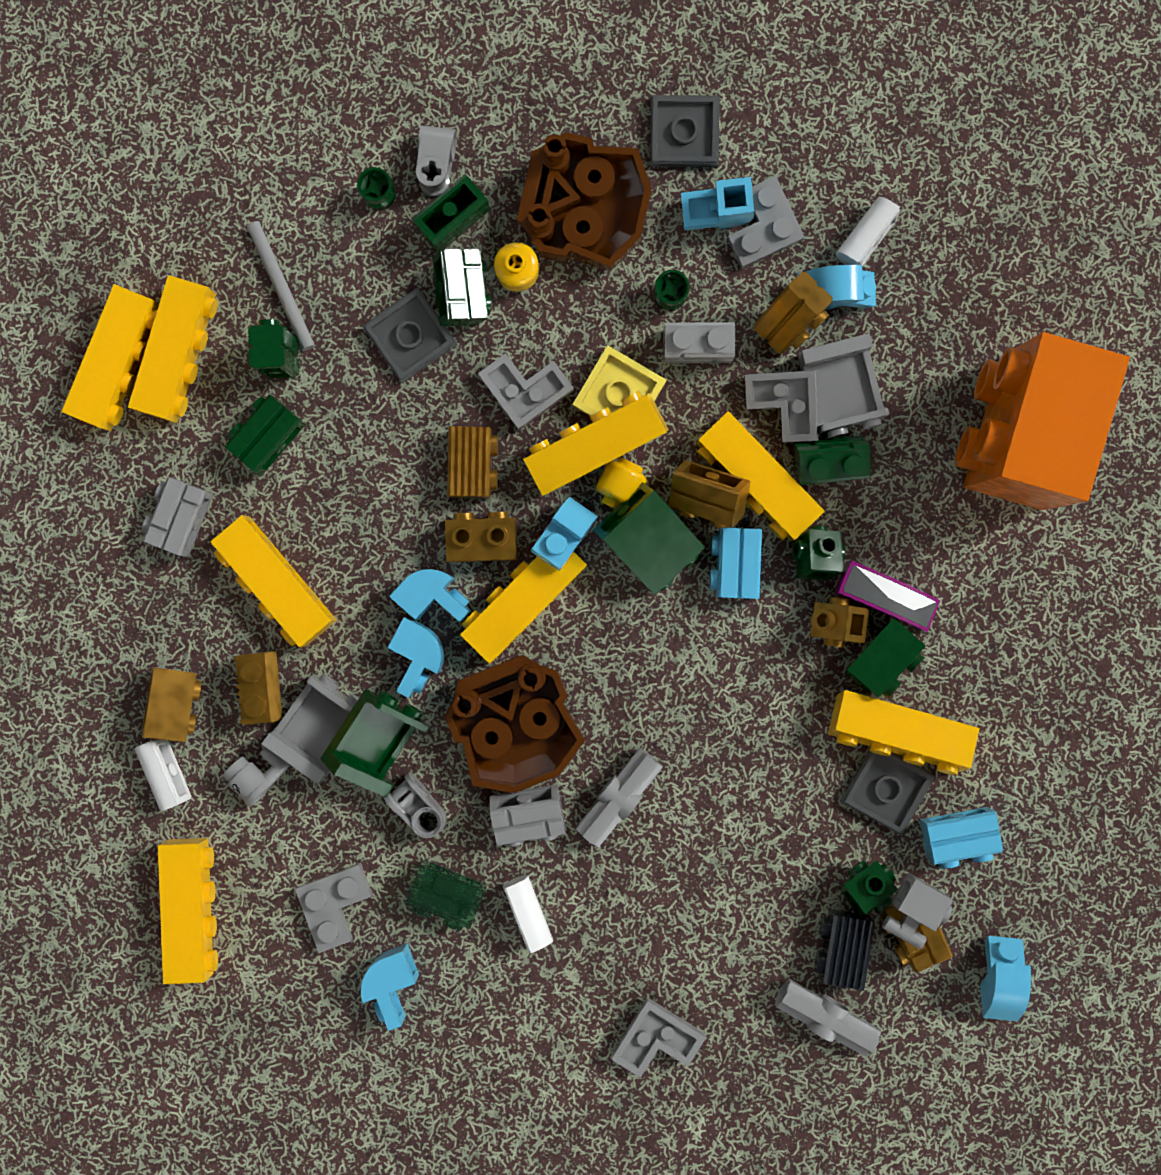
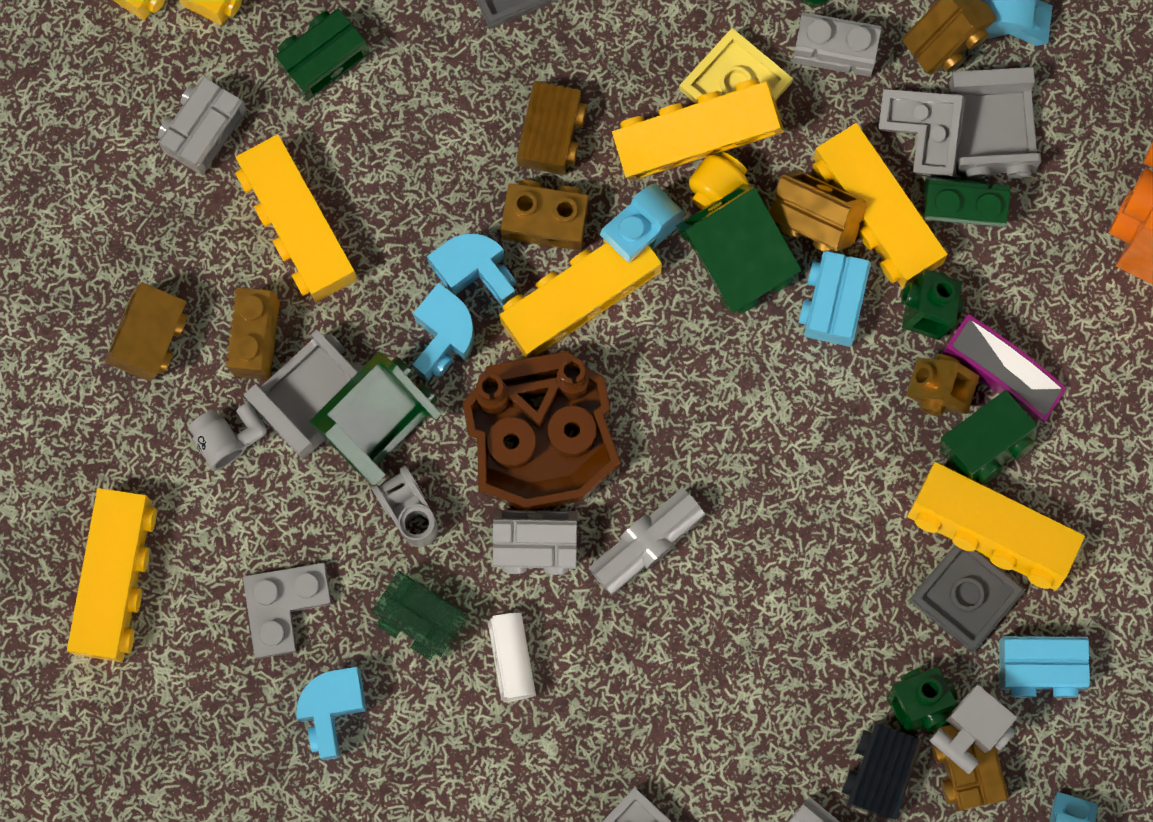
camera: 15 degrees right, 10 degrees down
(163, 773) = (118, 412): white brick -> none
(523, 398) = (626, 70): light grey plate -> none

